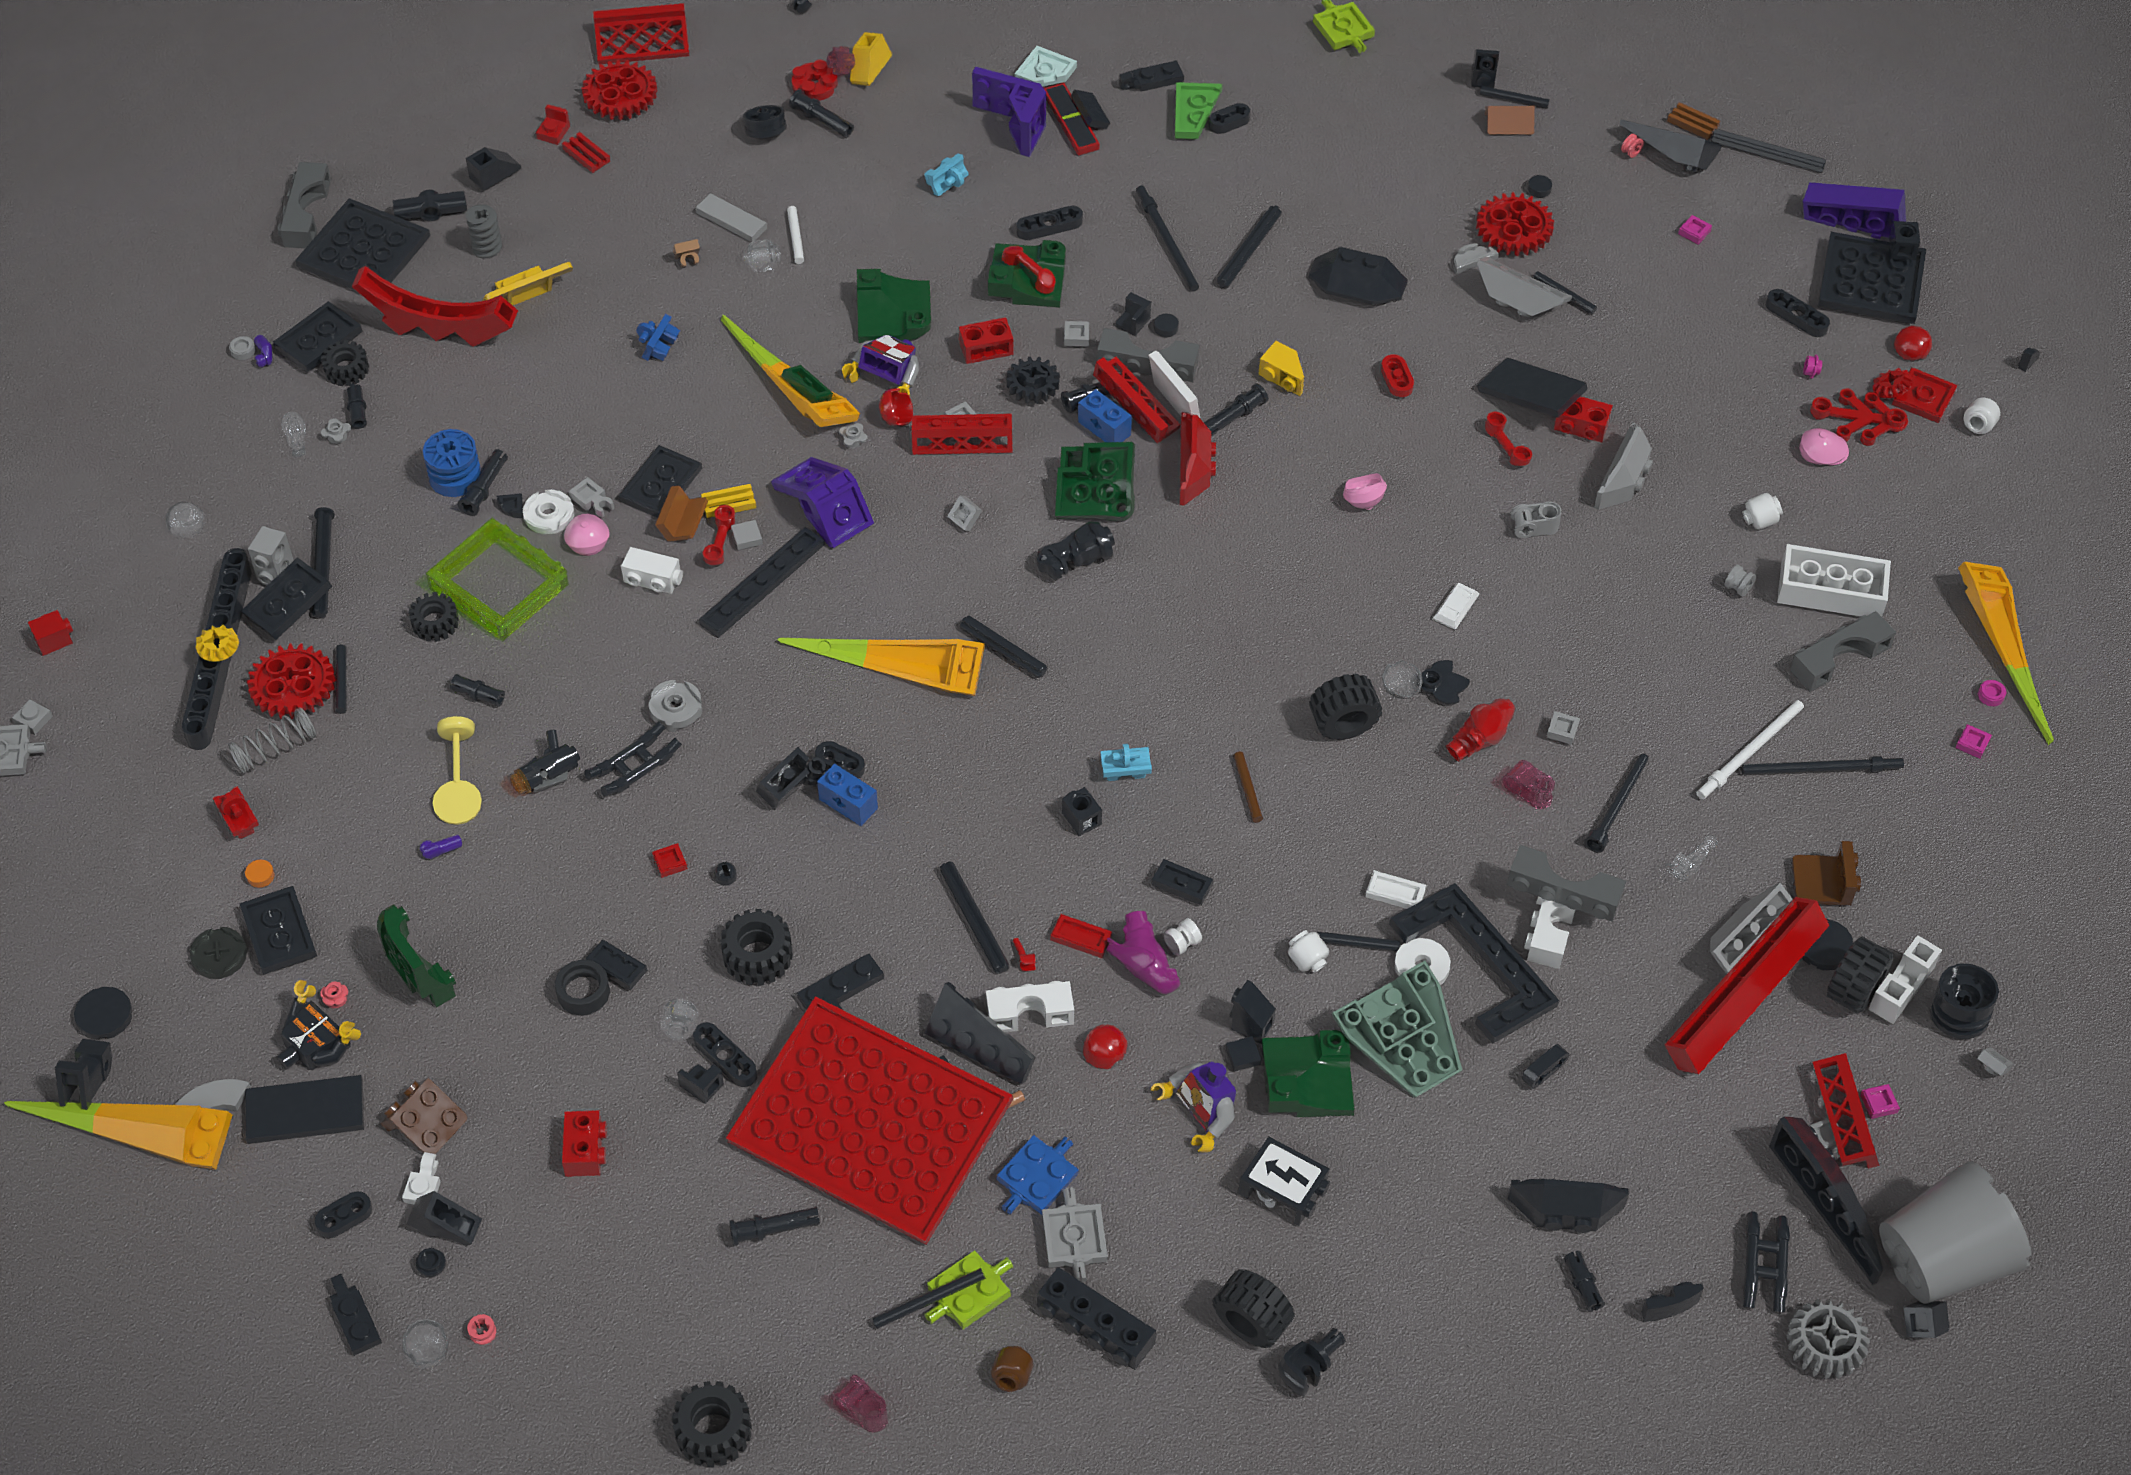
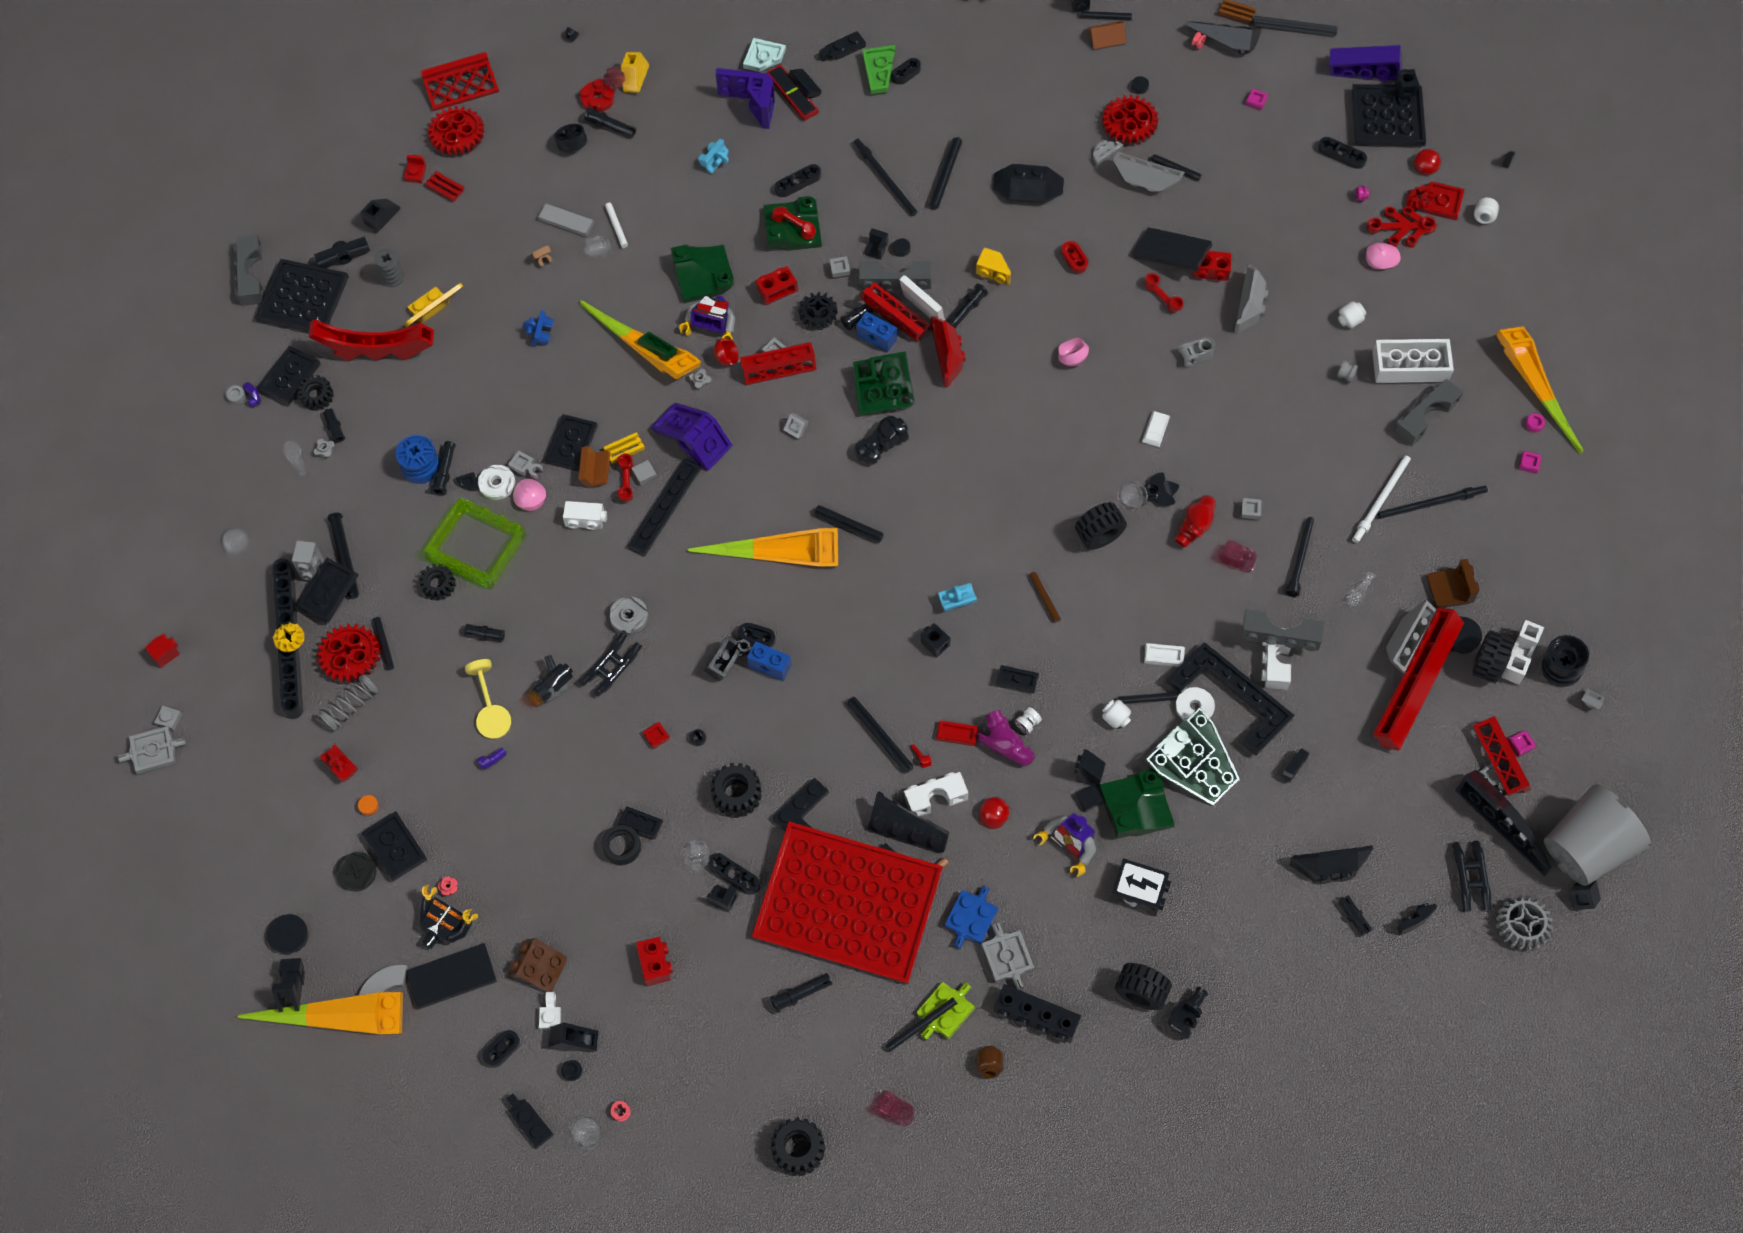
camera: 10 degrees left, 10 degrees up
(413, 969) = (504, 860): dark green slope -> none

